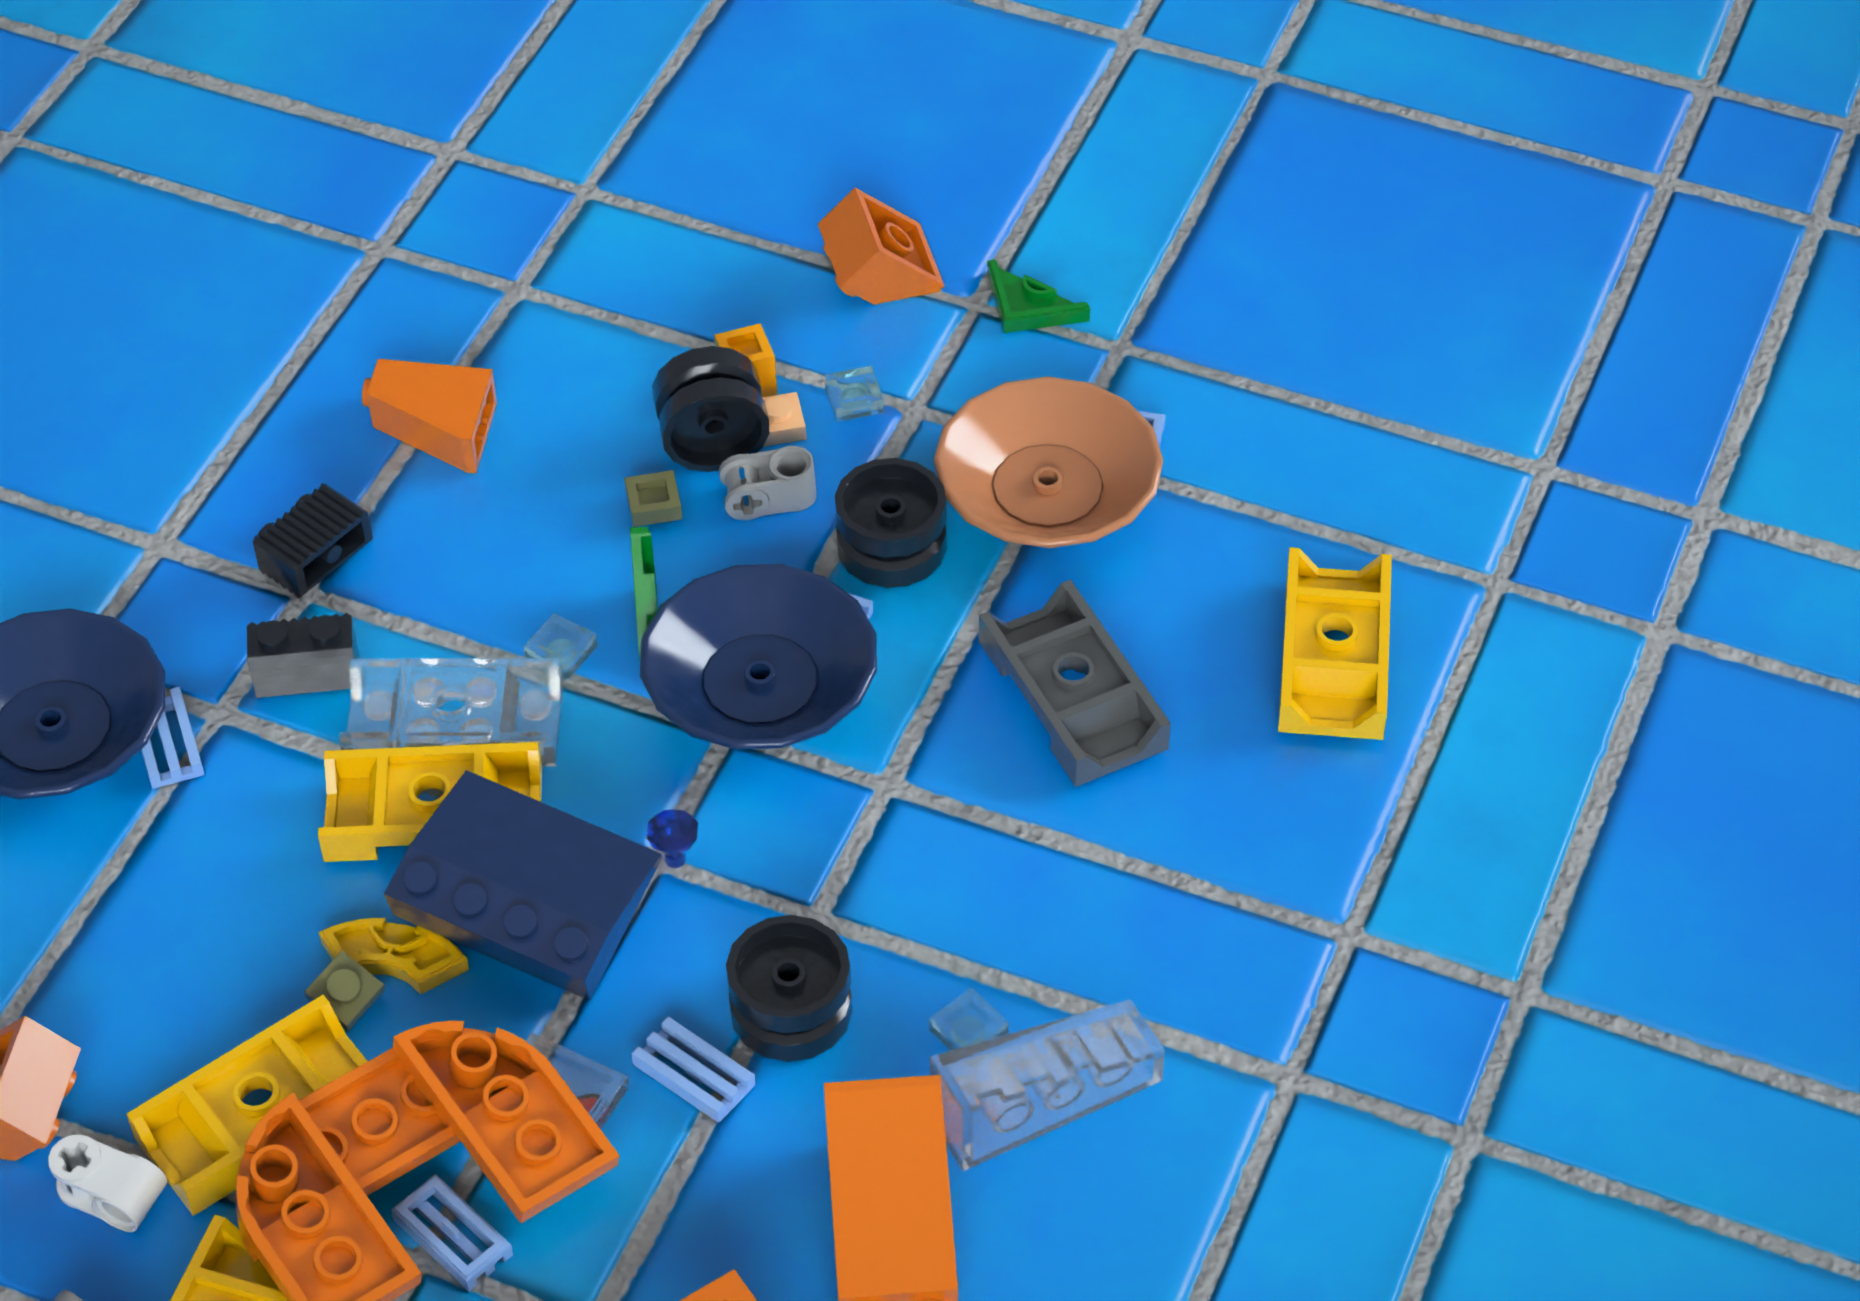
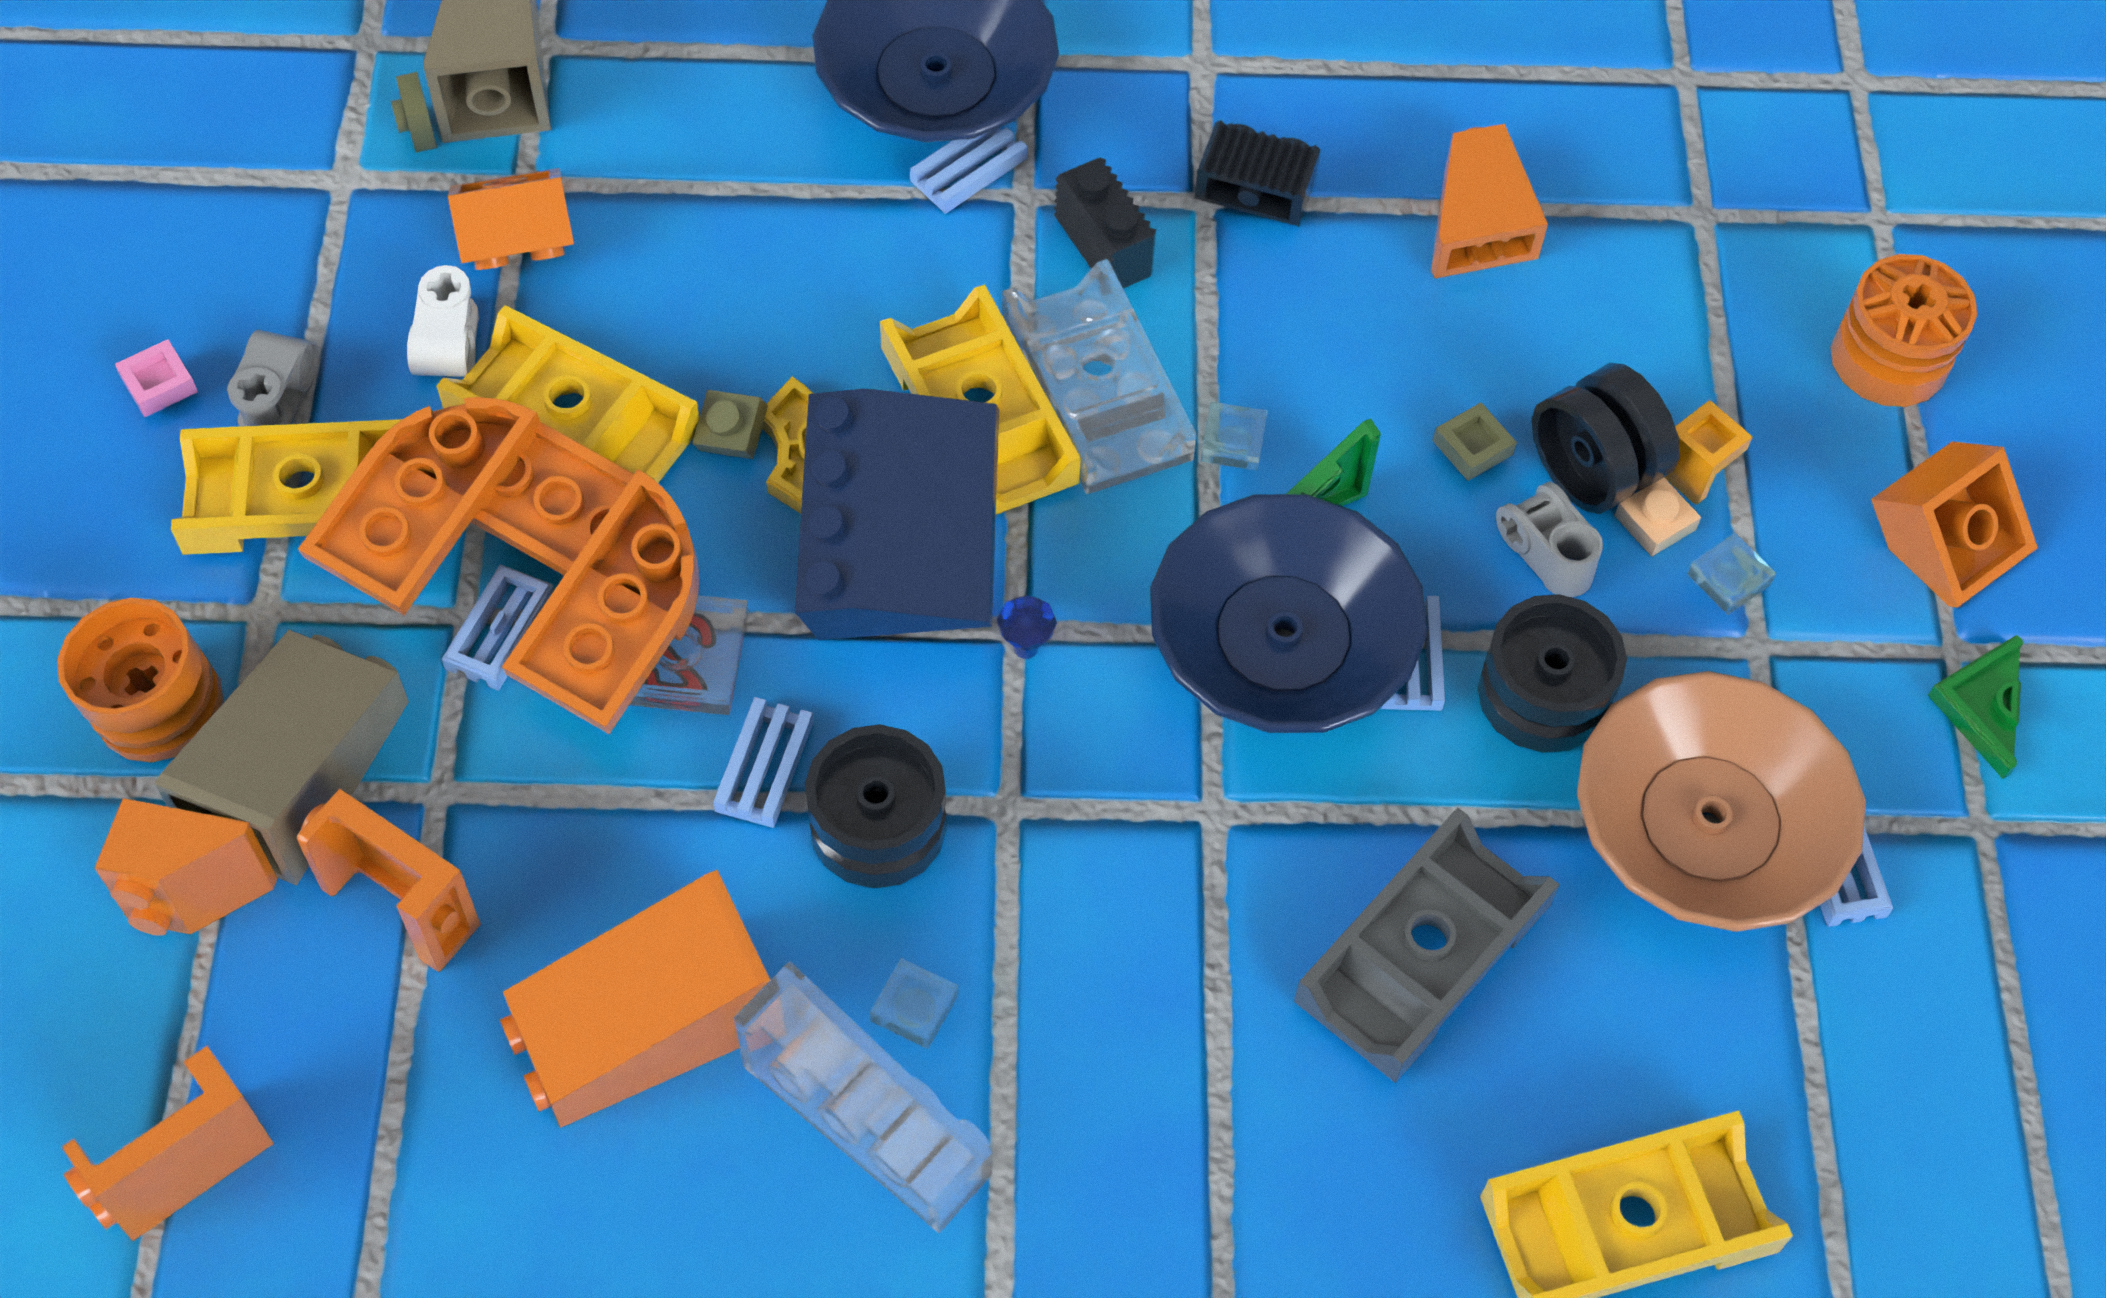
camera: 65 degrees right, 10 degrees up
(710, 208) = (1903, 330): none -> orange wheel

